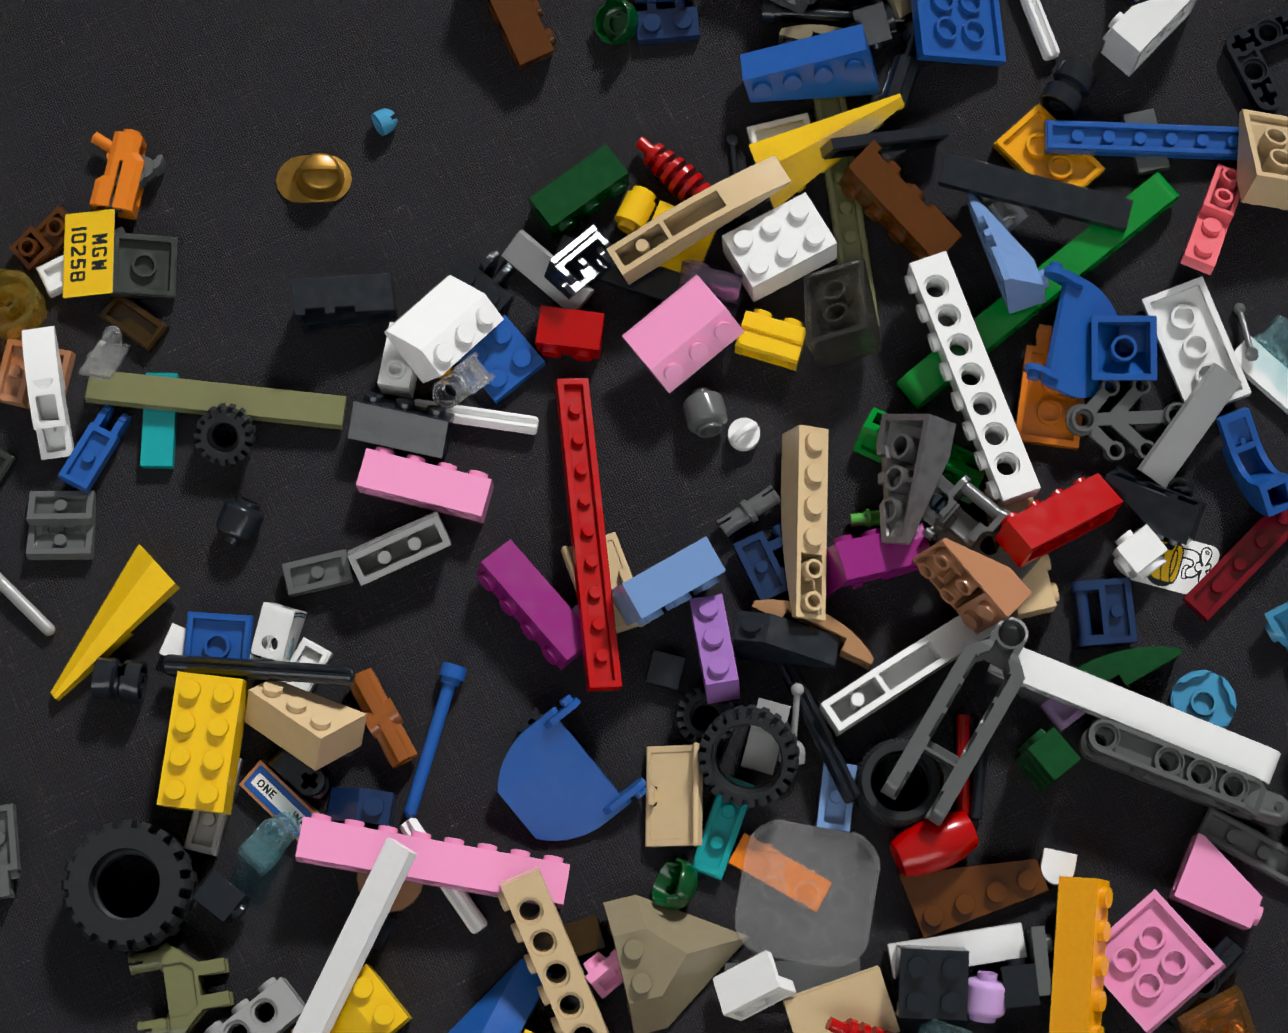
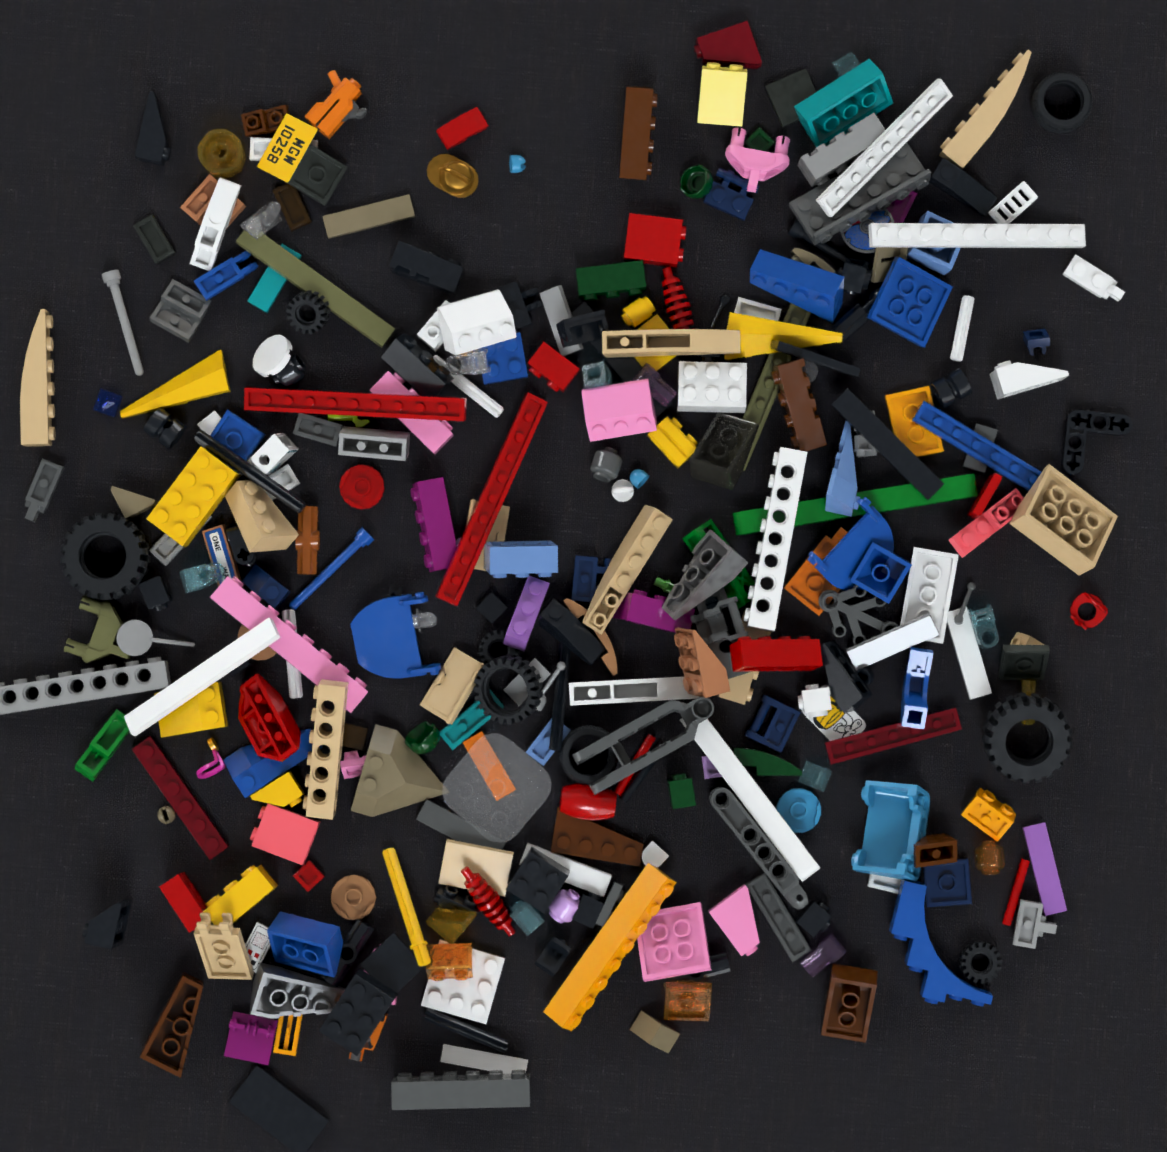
camera: 25 degrees right, 10 degrees up
(29, 691) = (107, 403): none -> clear blue tile
(128, 798) = (132, 503): none -> dark tan slope
(208, 512) = (272, 355): none -> white tile
(228, 969) = (136, 638): none -> light grey piece
(237, 282) = (369, 216): none -> dark tan tile
(292, 116) = (461, 128): none -> red slope
(347, 511) = (355, 404): none -> red plate
(351, 533) = (358, 423): none -> lime bar
(414, 613) = (362, 487): none -> red tile
(459, 978) = (267, 720): none -> red wedge
(589, 731) = (423, 620): none -> clear hinge
(605, 114) = (654, 240): none -> red brick
(628, 309) = (596, 375): none -> clear light blue brick
(748, 511) = (597, 540): dark grey pin -> none
(751, 987) = (432, 822): white panel -> none
(754, 407) = (638, 477): none -> dark azure hinge
(1189, 188) = (984, 496): none -> red tile
(1197, 648) = (815, 776): none -> clear light blue slope

